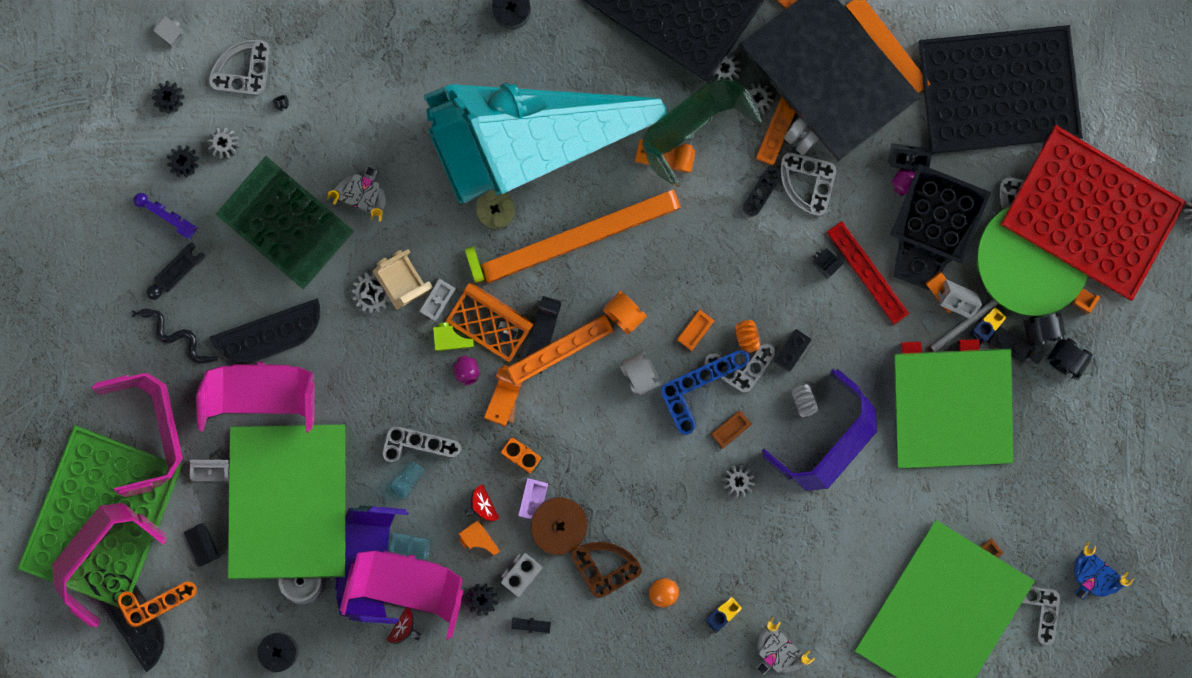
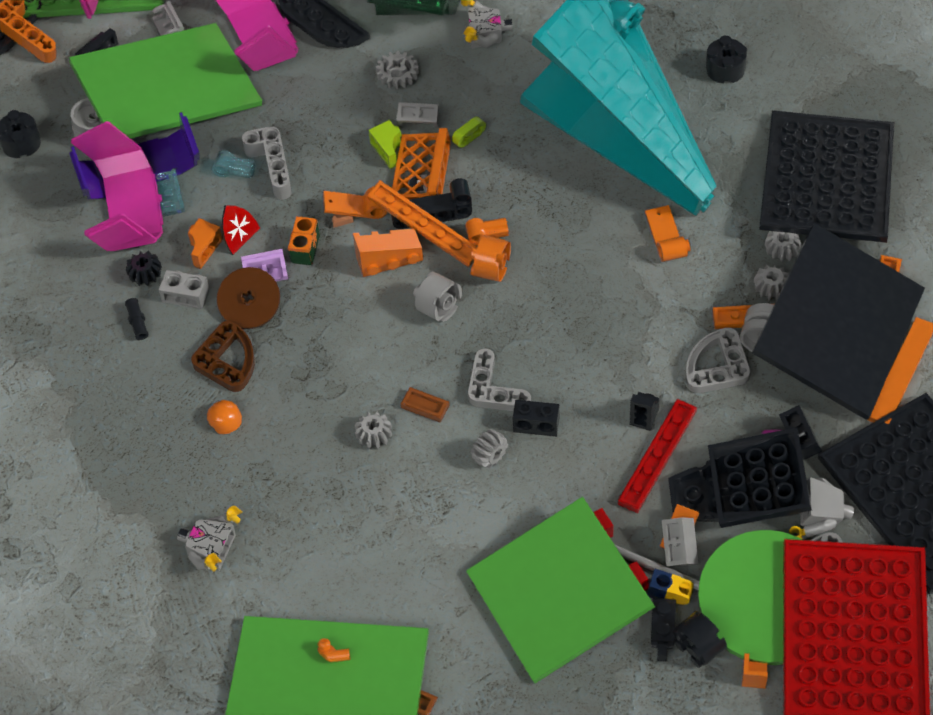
camera: 65 degrees right, 30 degrees down
(400, 279) = (422, 79): tan panel -> none
(404, 628) = (83, 217): red shield -> none
(466, 370) = (363, 165): magenta head -> none
(498, 220) = (529, 124): olive brick -> none
(571, 390) = (387, 251): none -> orange wedge
(580, 236) = (547, 201): orange beam -> none
(586, 303) = (492, 228): none -> orange piece
(691, 116) = (704, 221): clear green piece -> none
(695, 330) = (509, 332): orange tile -> none
(695, 375) = (439, 335): blue beam -> none
(723, 614) = (225, 475): leg -> none
(748, 336) = (527, 370): orange gear -> none
(774, 182) = (667, 321): black beam -> none
(842, 452) = (458, 498): dark purple piece -> none
(923, 601) = (330, 653): none -> orange arm
(982, 174) = (827, 509): none -> light grey torso
(1069, 358) = (679, 679): black brick -> none

